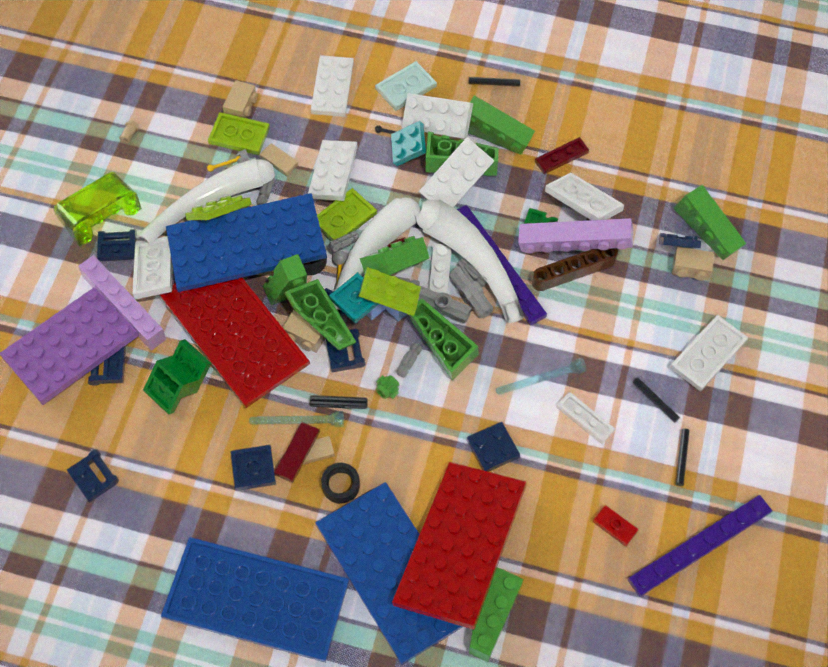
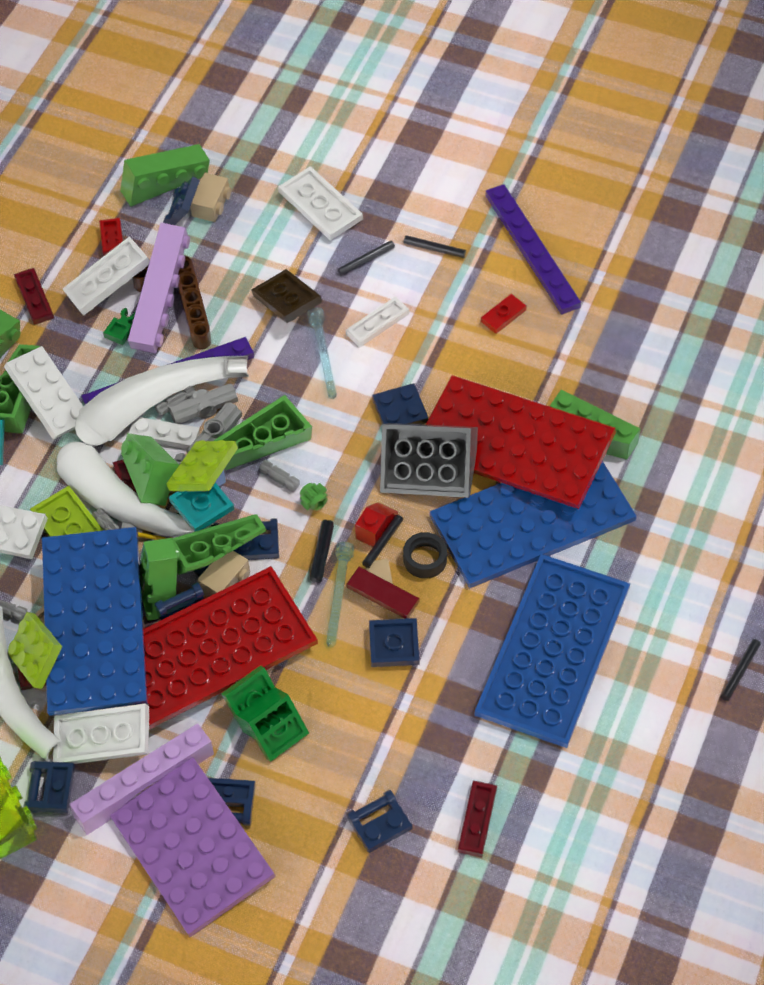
camera: 80 degrees left, 5 degrees down
(96, 551) = (477, 819): none -> dark red tile
(268, 300) = (179, 602): none -> dark blue plate
(351, 447) = (382, 541): none -> black bar
(369, 439) = (373, 523): none -> red slope
(432, 470) = (427, 459): none -> dark grey slope
(592, 337) = (286, 296): none -> dark brown plate
(634, 197) = (110, 234): none -> red plate

